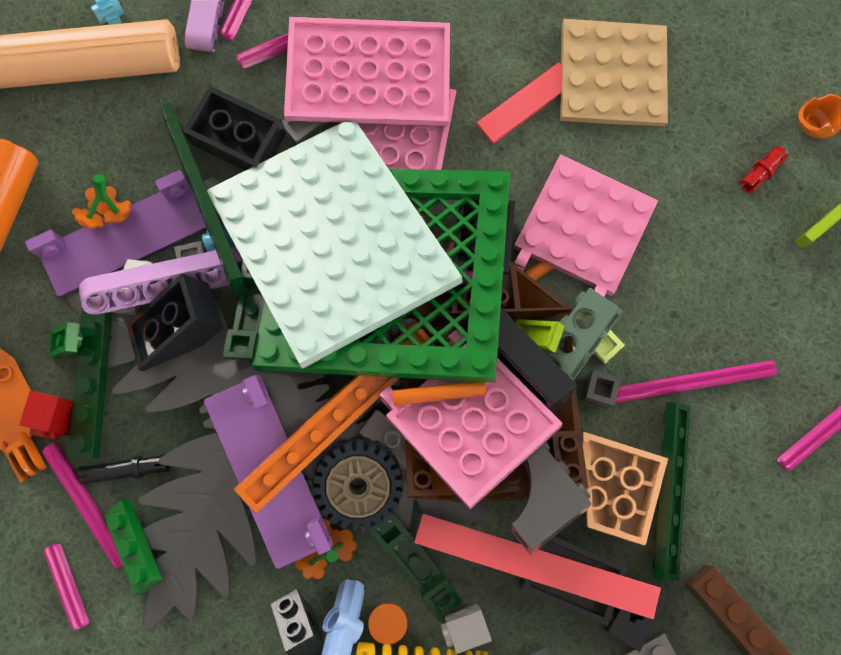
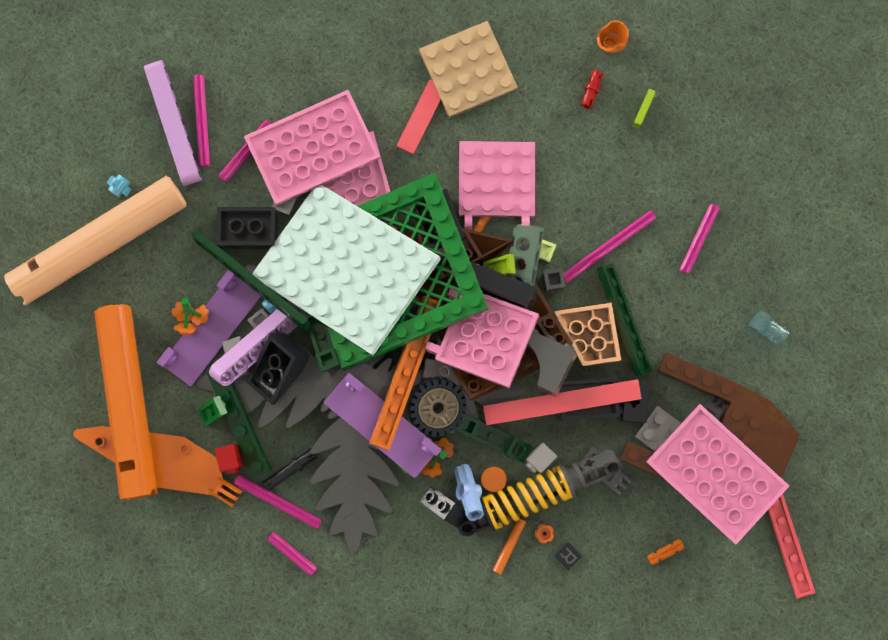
camera: 25 degrees left, 5 degrees up
(132, 547) = (320, 510): green plate -> none
(439, 393) = (459, 331): orange piece -> none

